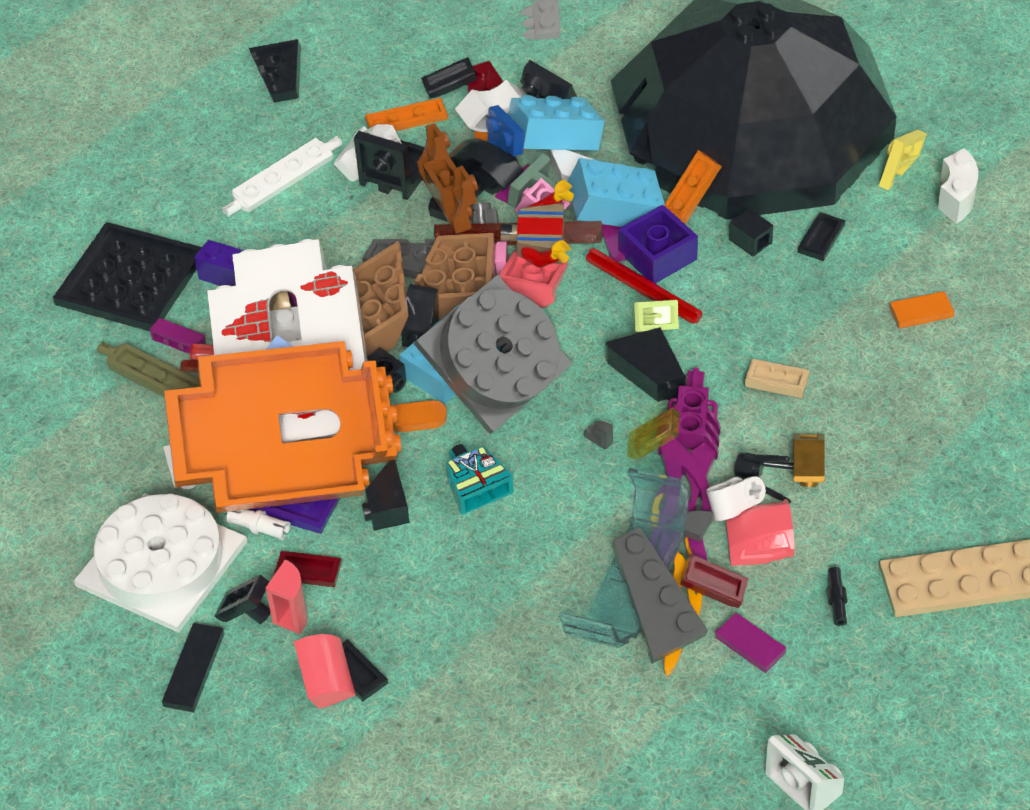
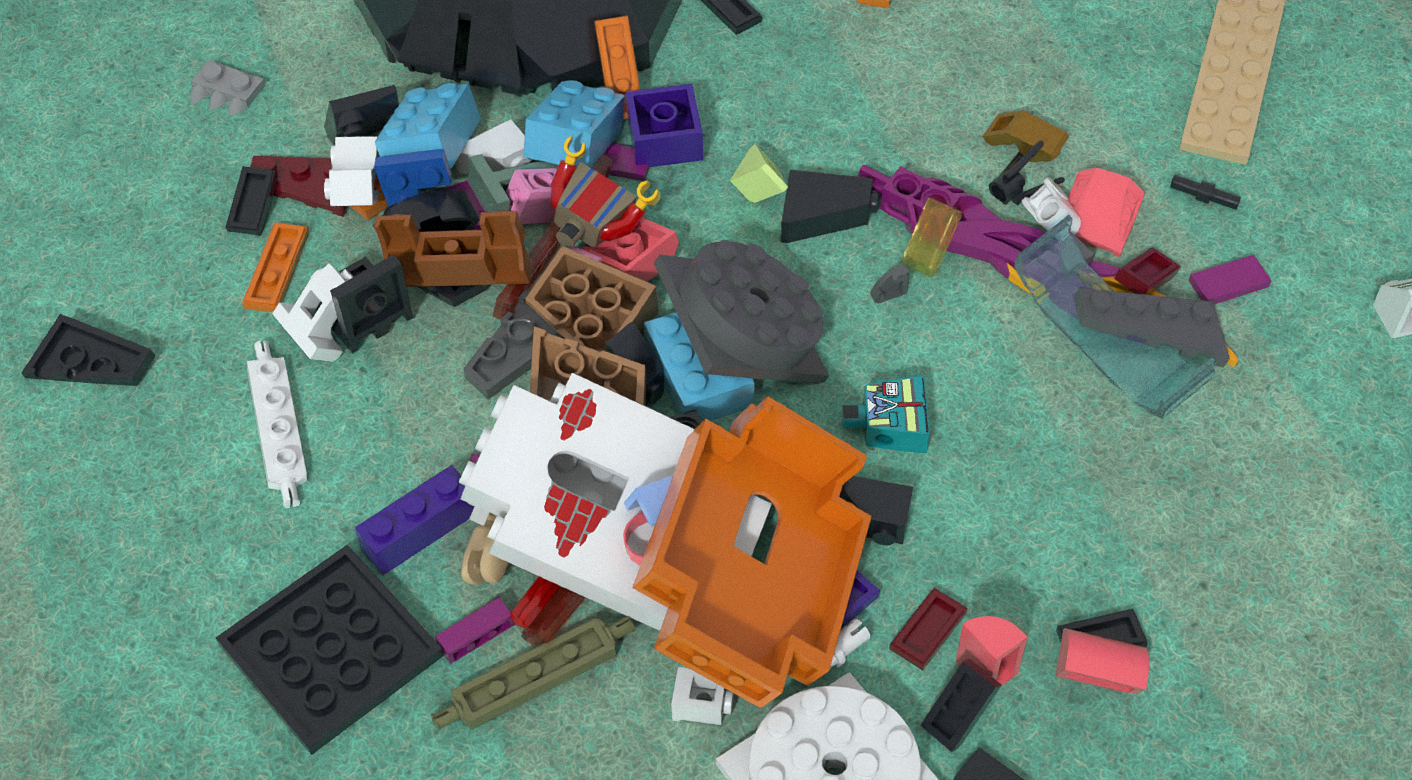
camera: 65 degrees left, 5 degrees up
(641, 284) = (702, 166): red axle -> none
(750, 232) = (693, 52): black brick -> none
(777, 378) = (903, 117): tan plate -> none

